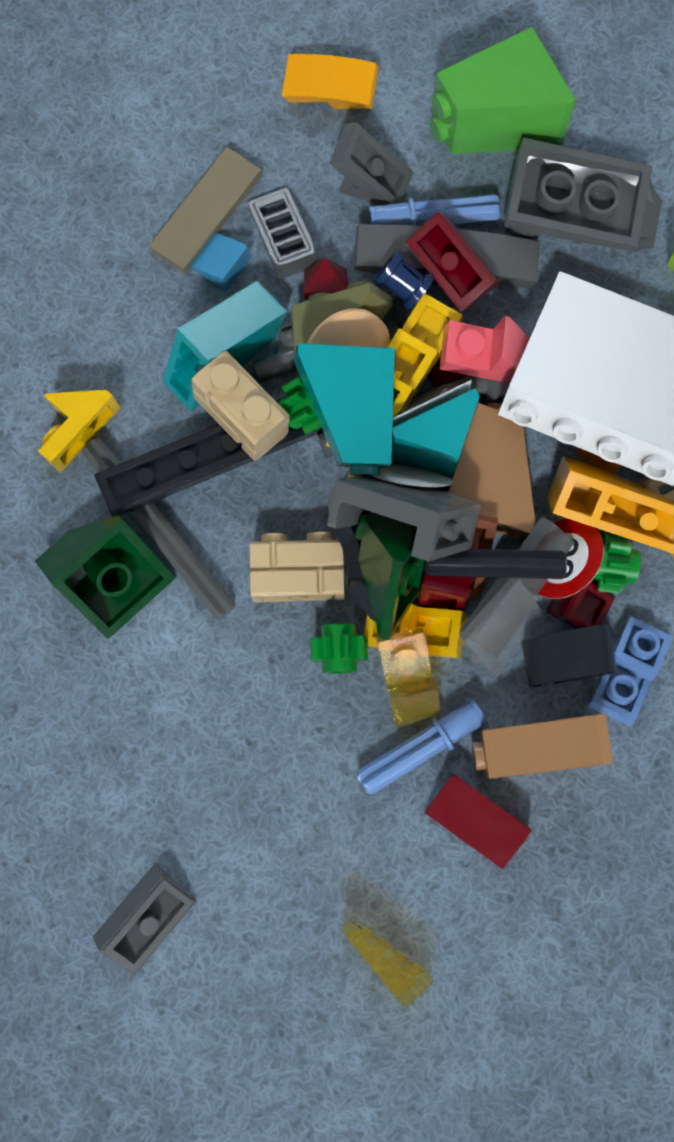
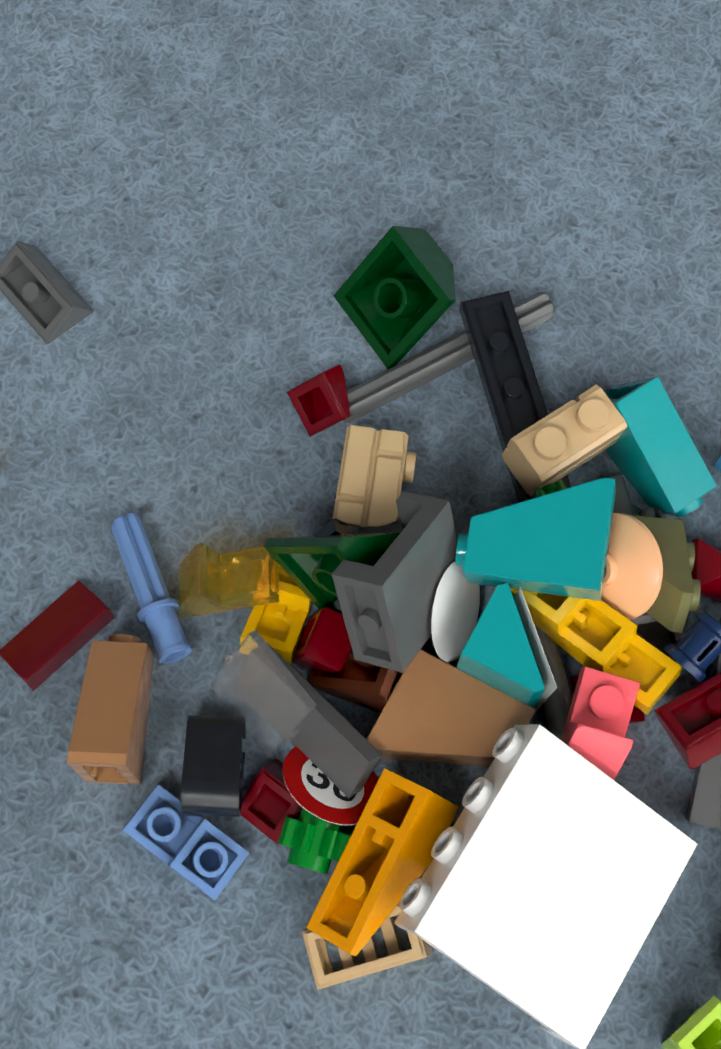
camera: 90 degrees right, 10 degrees down
(85, 415) = (573, 294): yellow slope -> none
(220, 628) = (321, 400): none -> dark red slope
(339, 649) = (273, 511): green gear -> none
(501, 564) = (328, 695): black axle -> none

